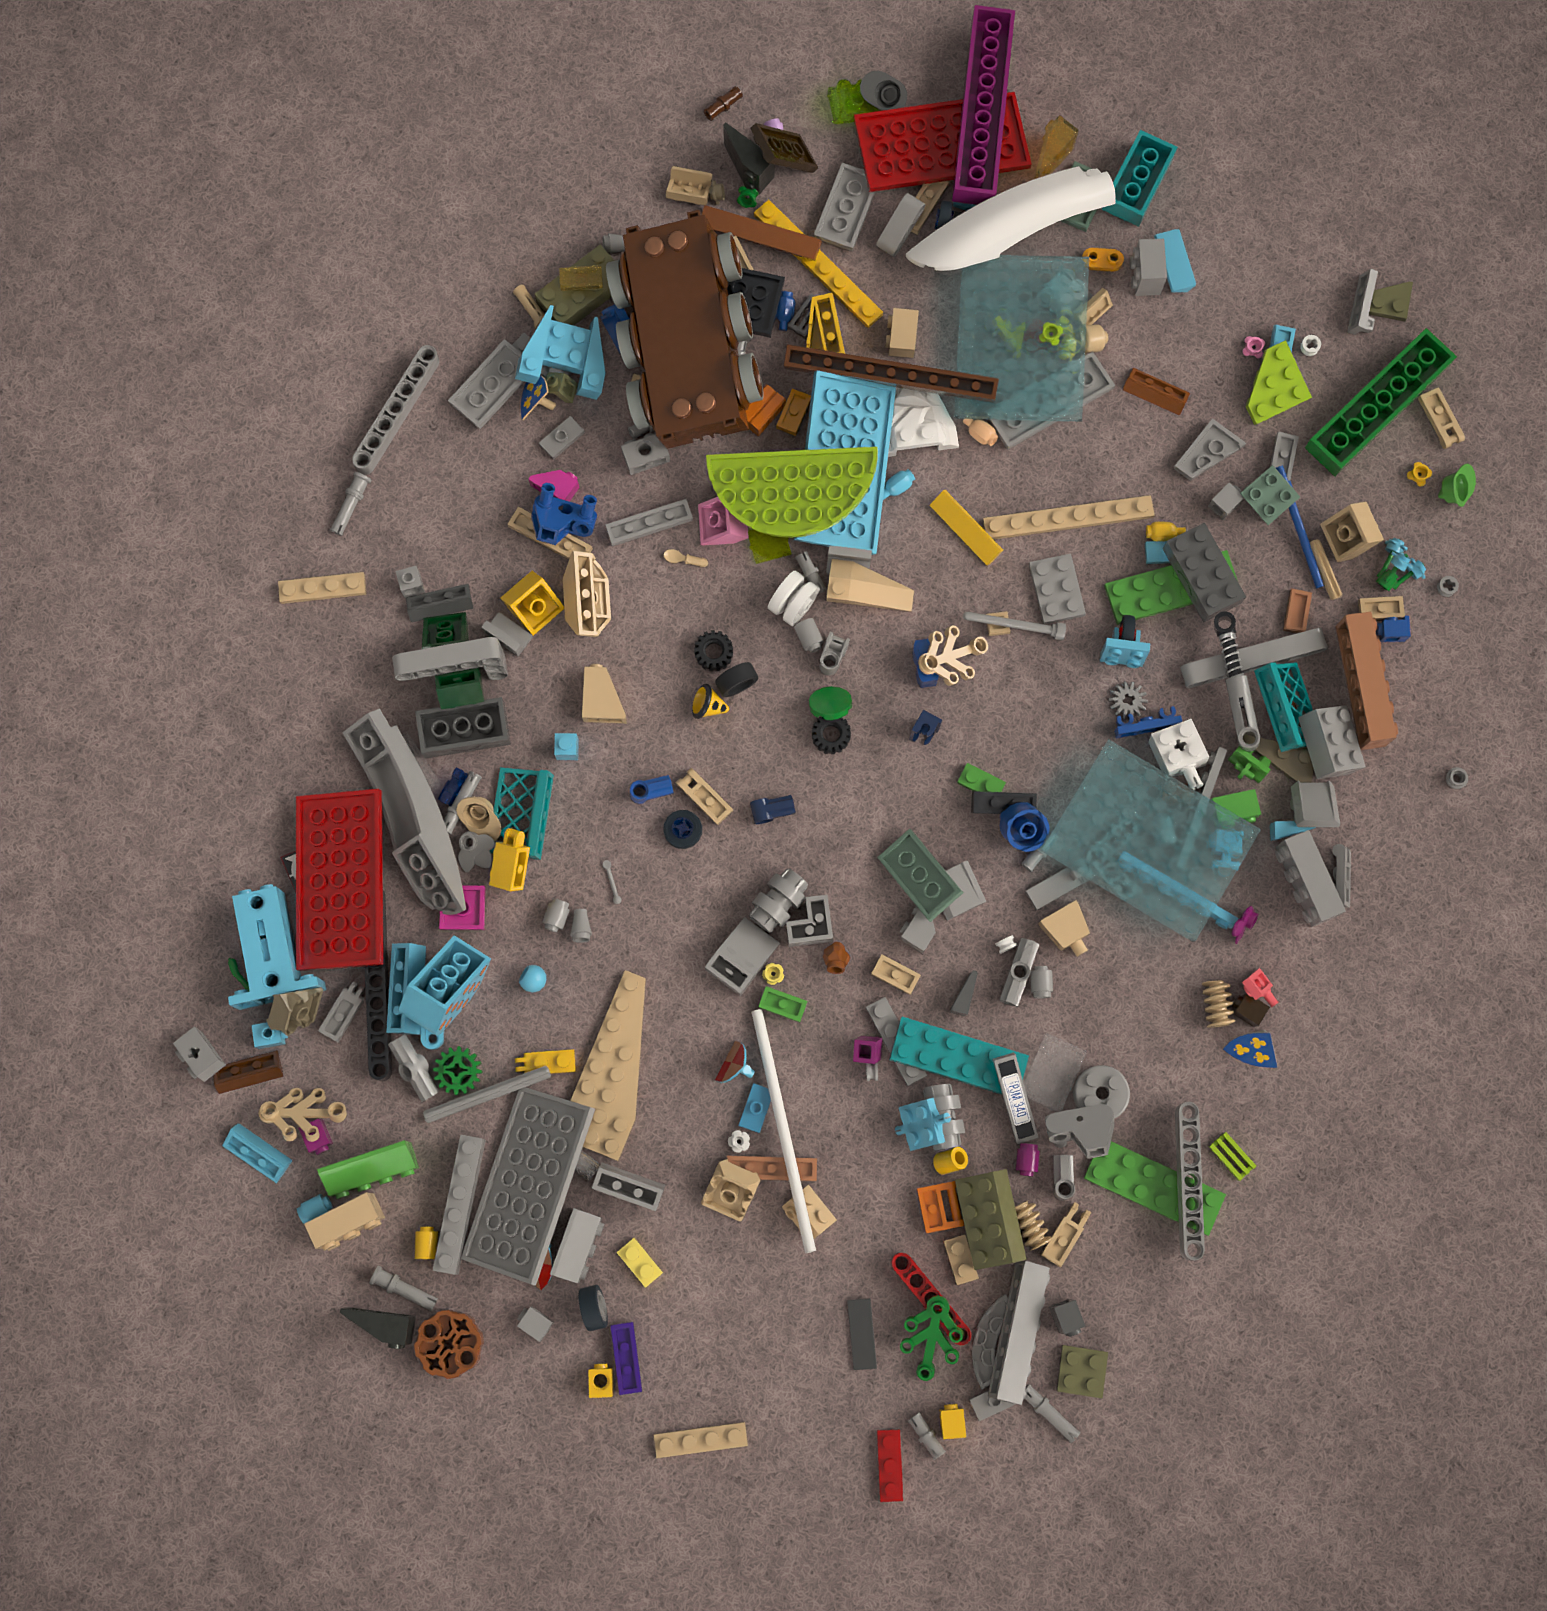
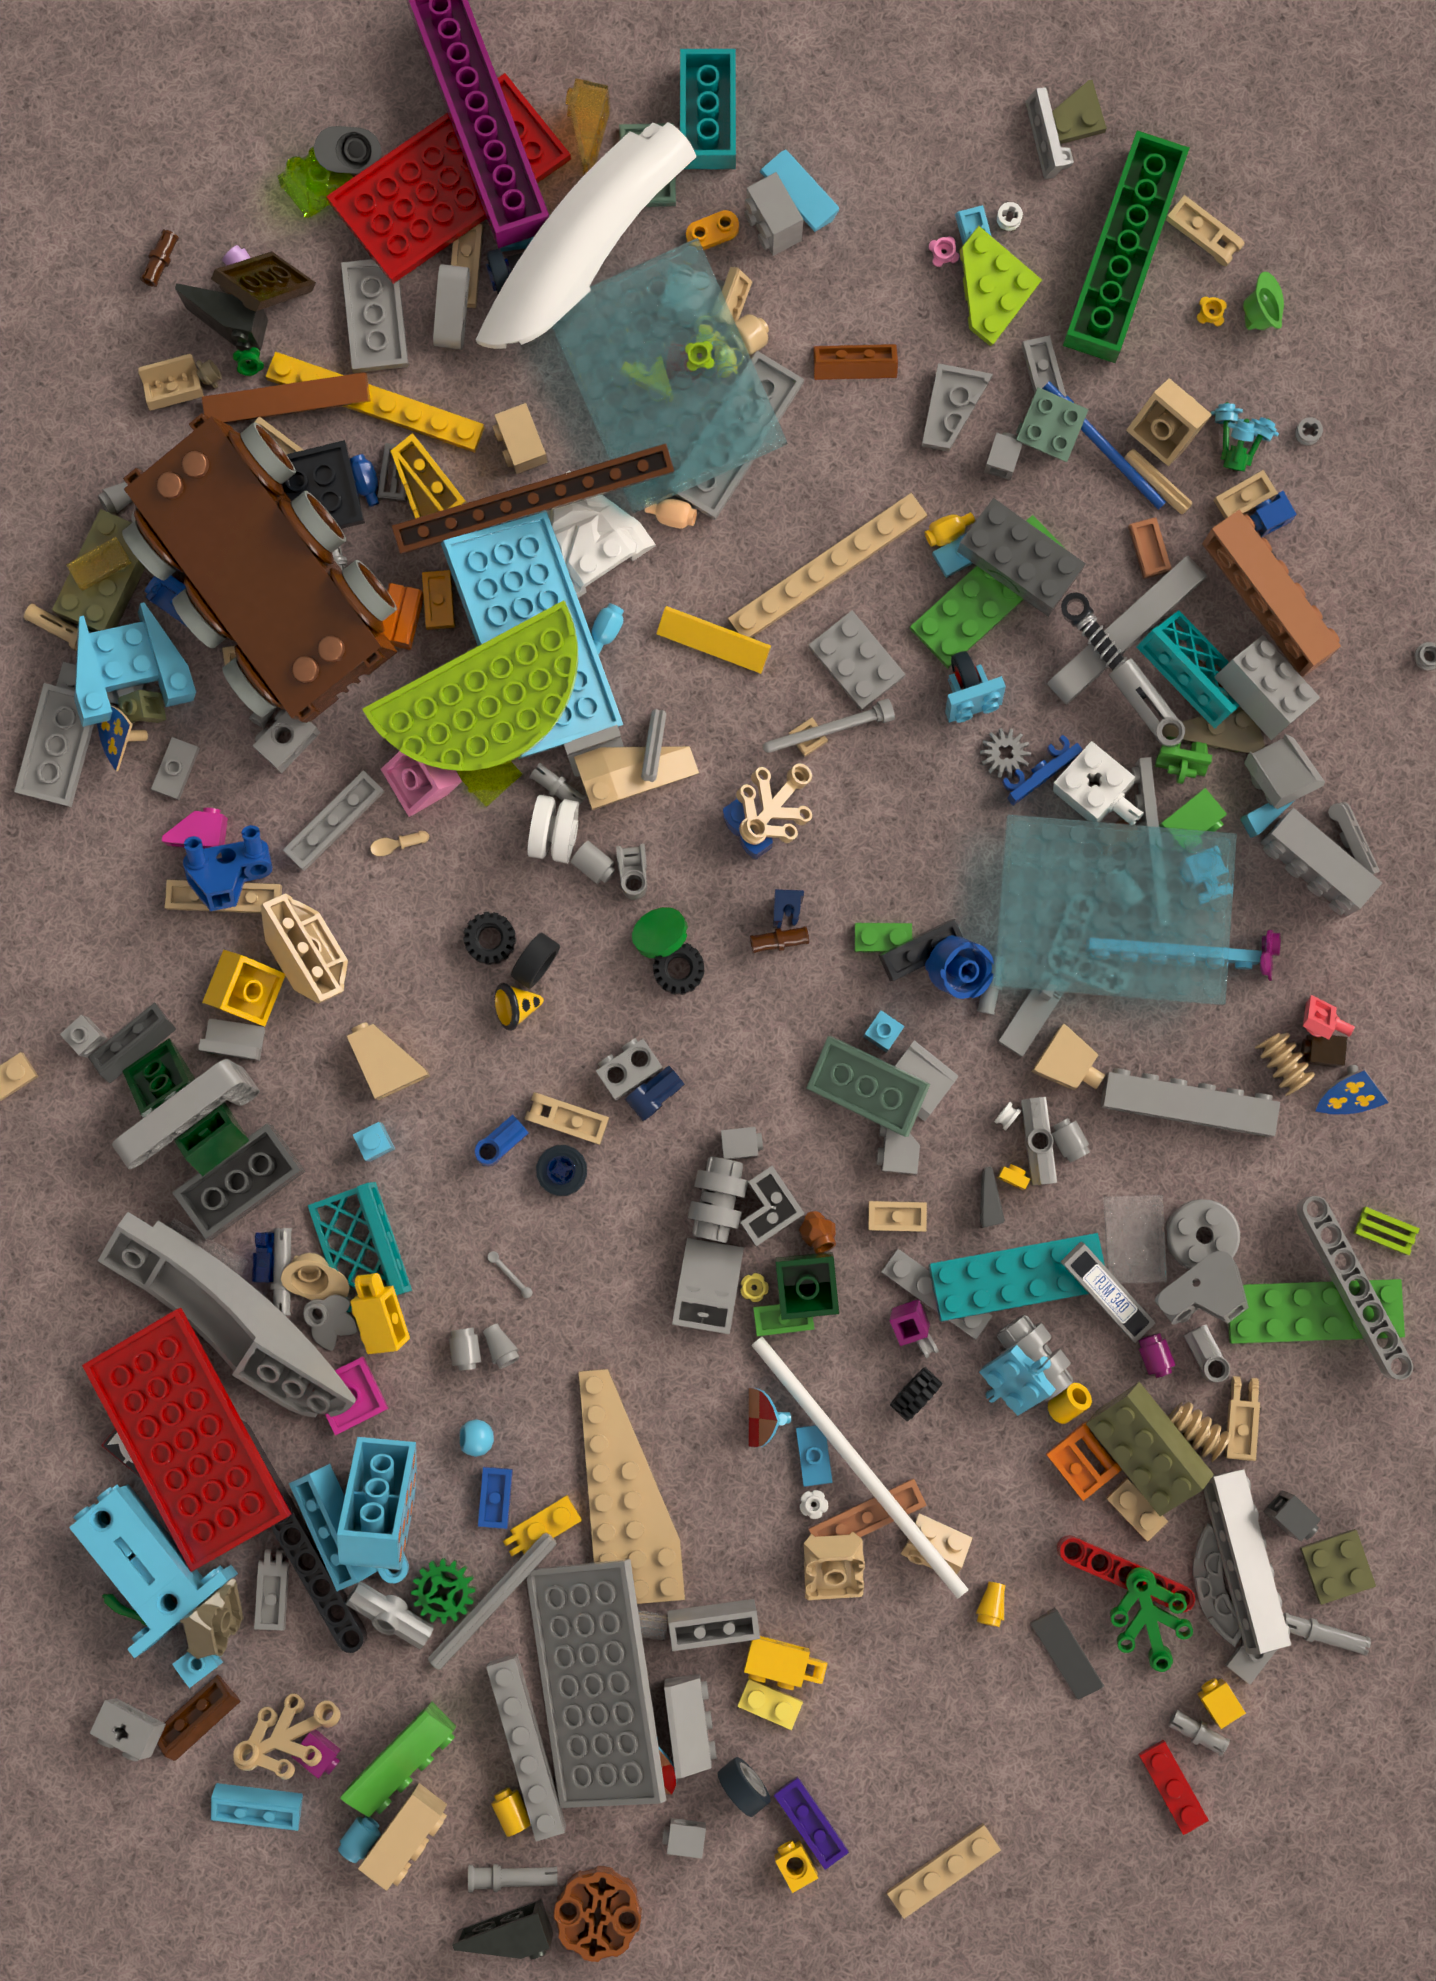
camera: 25 degrees left, 5 degrees up
(525, 1026) = (495, 1497): none -> blue plate
(661, 1237) = (782, 1663): none -> yellow brick
(764, 789) = (632, 1075): none -> light grey brick
(810, 989) = (807, 1285): none -> dark green slope
(814, 871) = (741, 1143): none -> light grey brick
(825, 1275) = (992, 1605): none -> yellow cone
(847, 1100) = (916, 1394): none -> black tyre
(889, 577) = (653, 745): none -> light grey axle
(909, 748) = (779, 939): none -> reddish brown pin
(949, 844) = (883, 1031): none -> medium azure brick
(990, 987) = (1013, 1176): none -> yellow plate
(1137, 999) = (1190, 1104): none -> light grey brick

